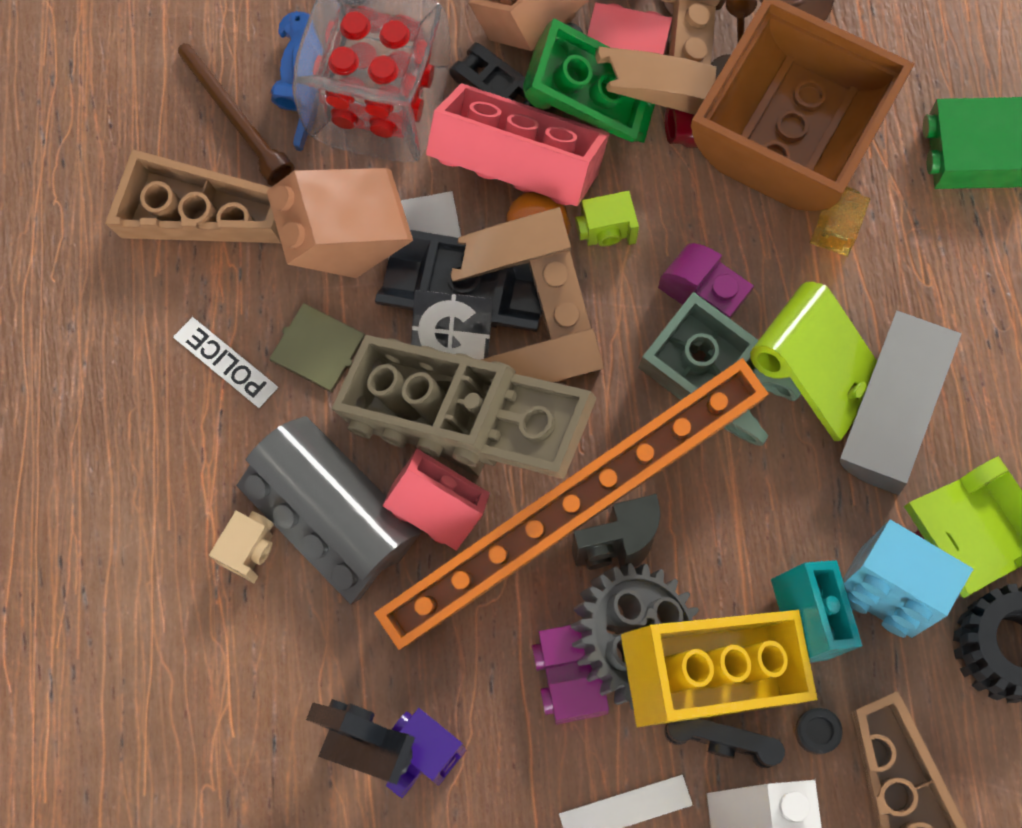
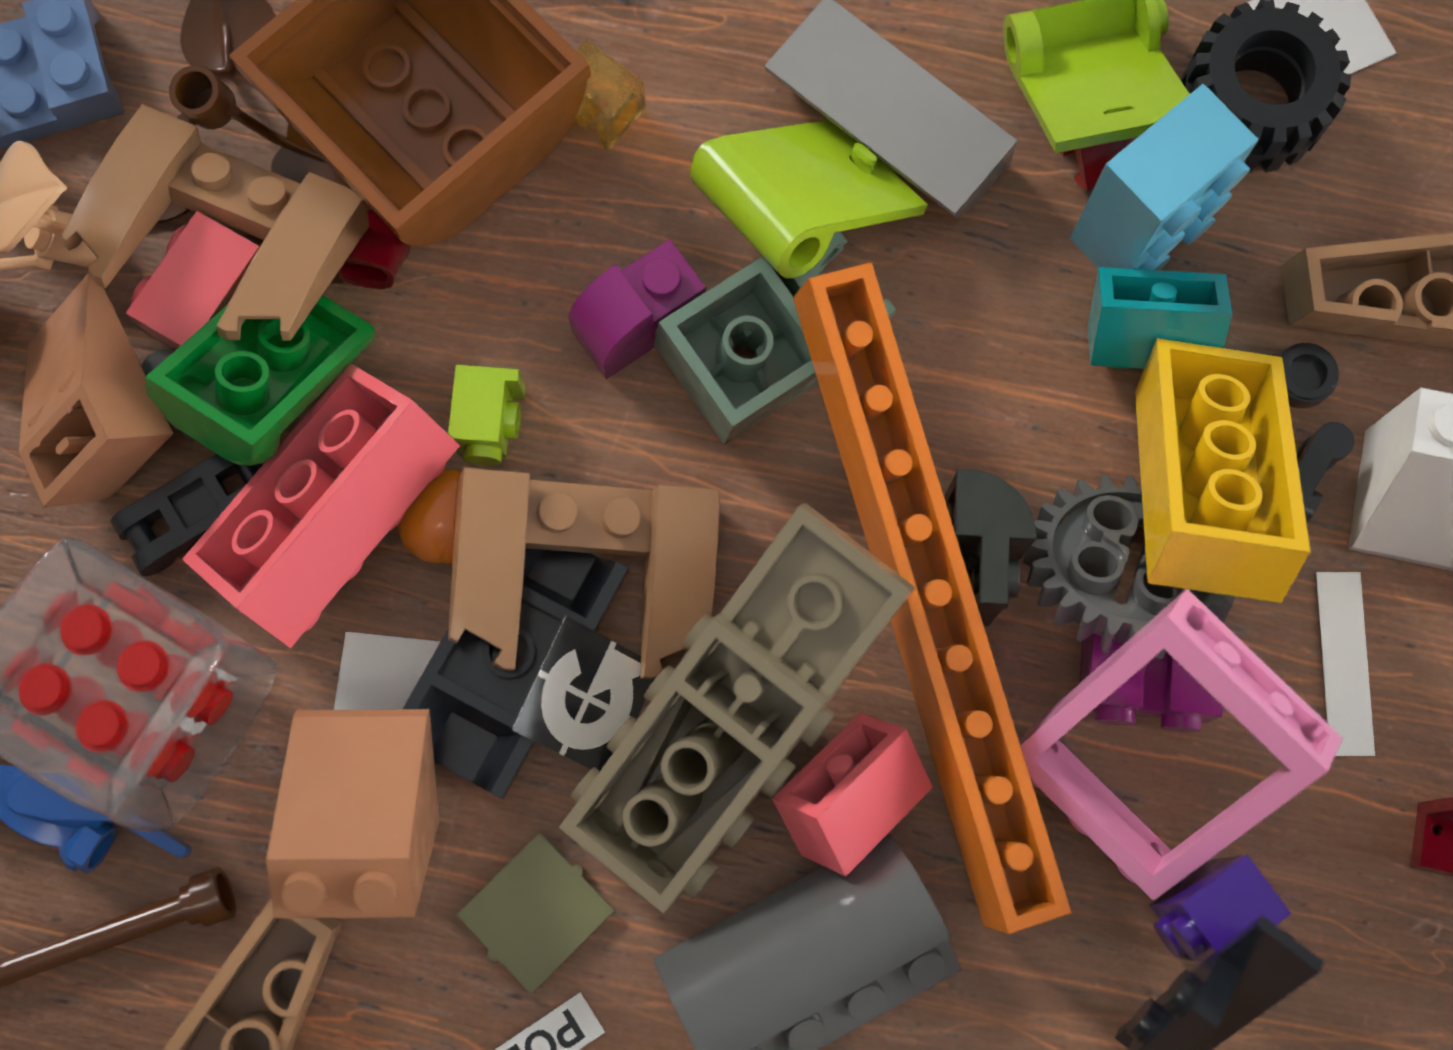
camera: 75 degrees left, 5 degrees up
(562, 700) = (1240, 684): none -> bright pink window

